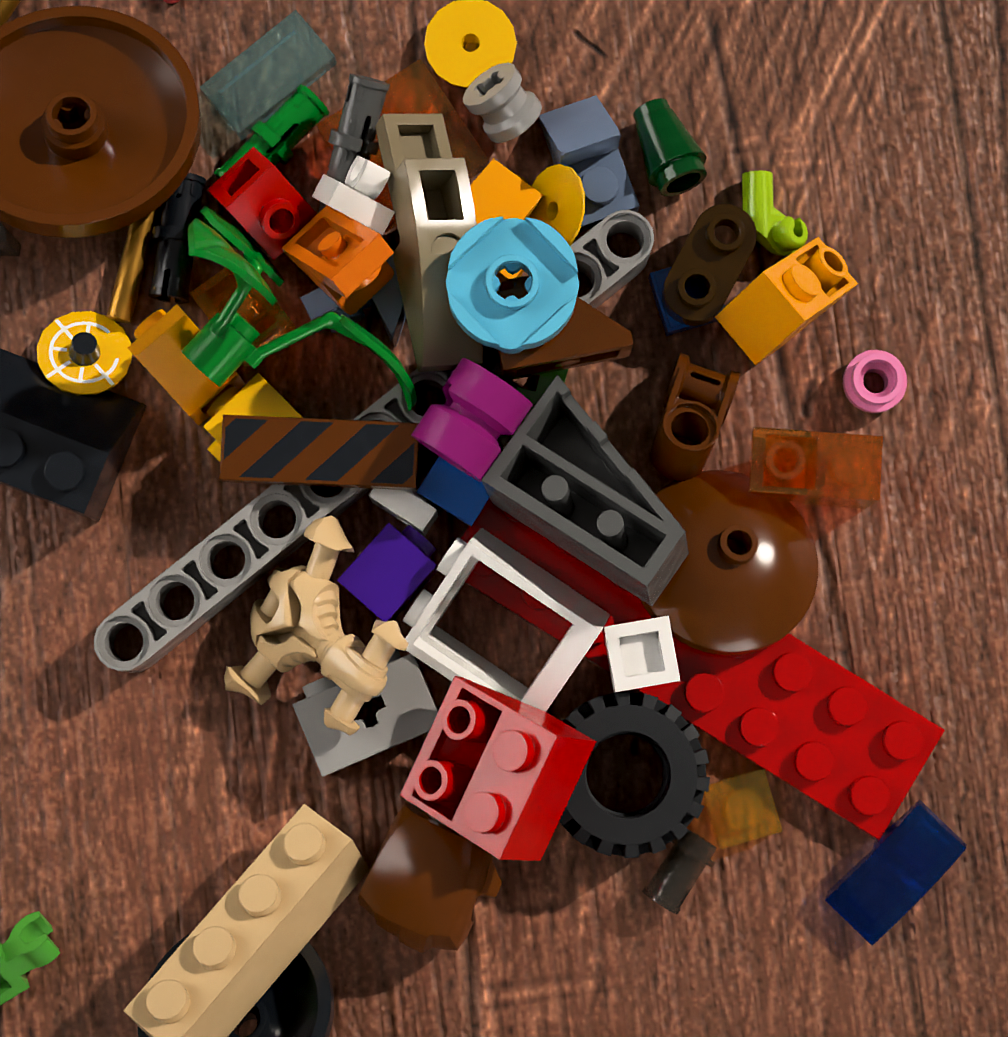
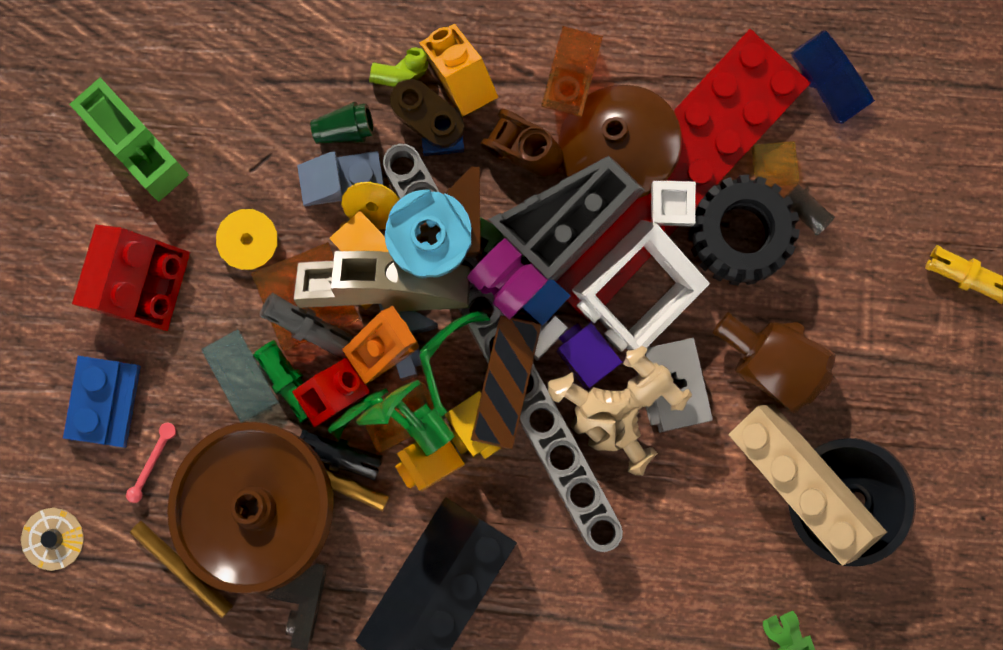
camera: 80 degrees left, 0 degrees up
(84, 353) = (404, 530): yellow piece -> none
(357, 196) = (342, 326): white tile -> none
(497, 770) = (731, 306): red slope -> none
(502, 102) = (293, 225): light grey wheel -> none
(888, 368) = (524, 14): bright pink plate -> none

